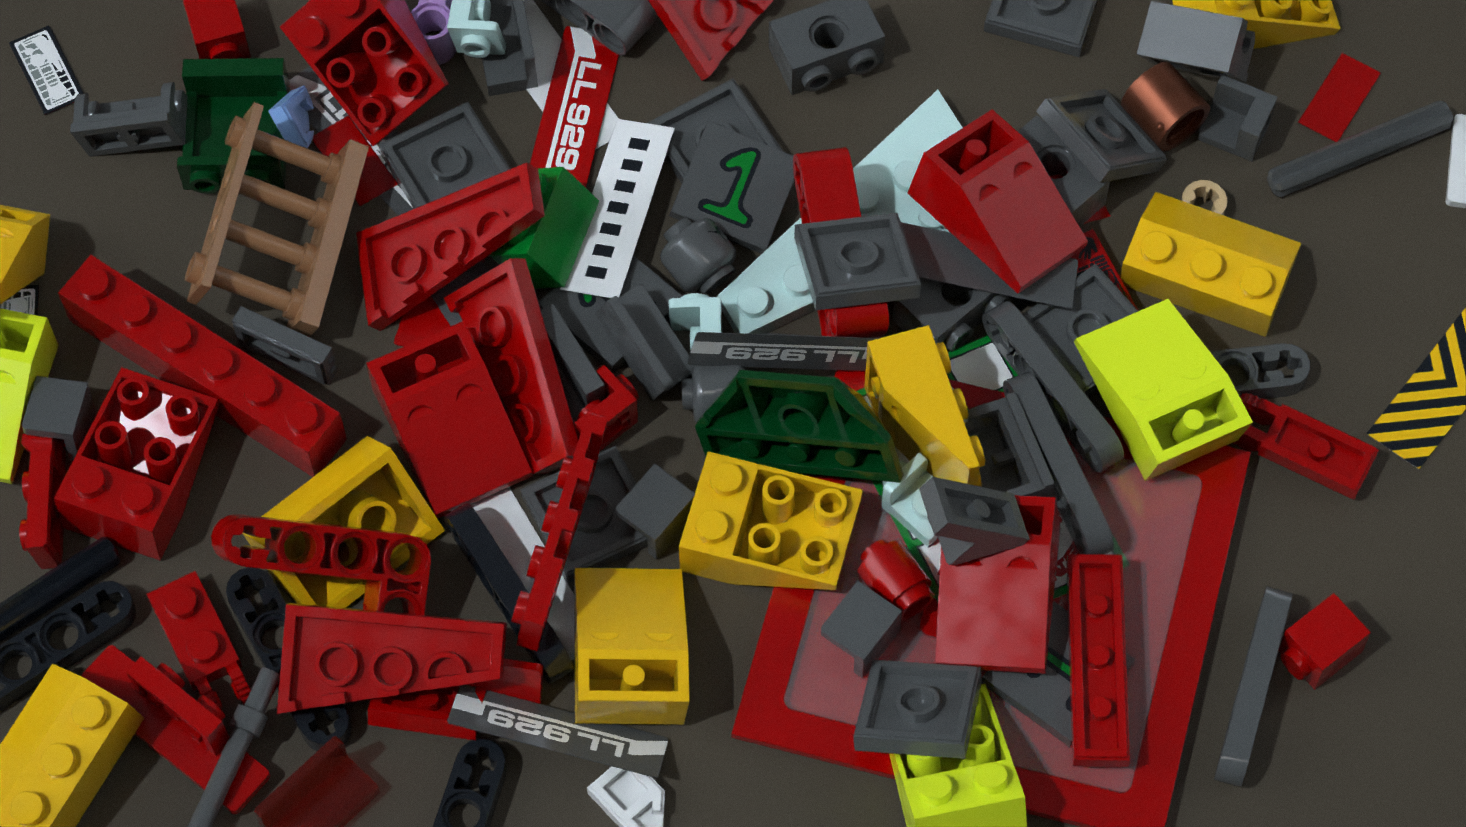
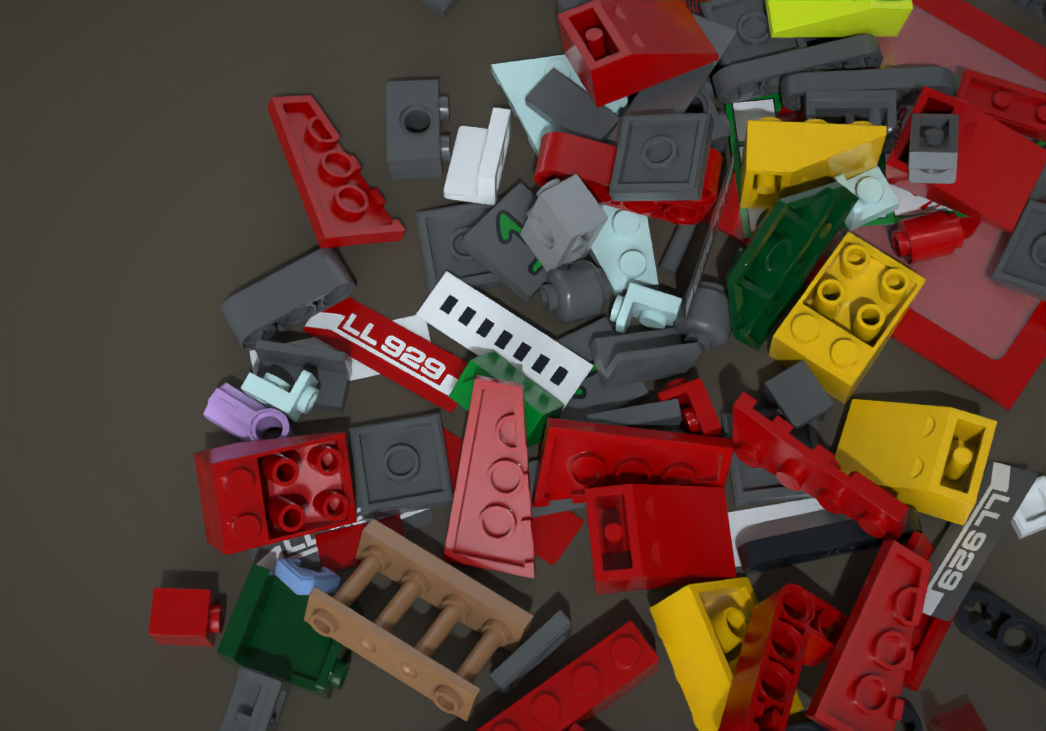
camera: 65 degrees left, 5 degrees up
(751, 199) = (563, 222): none -> light grey brick
(817, 117) = (479, 160): none -> white panel
(863, 626) = (965, 272): dark grey panel -> none
(896, 176) = (571, 108): none -> dark grey tile

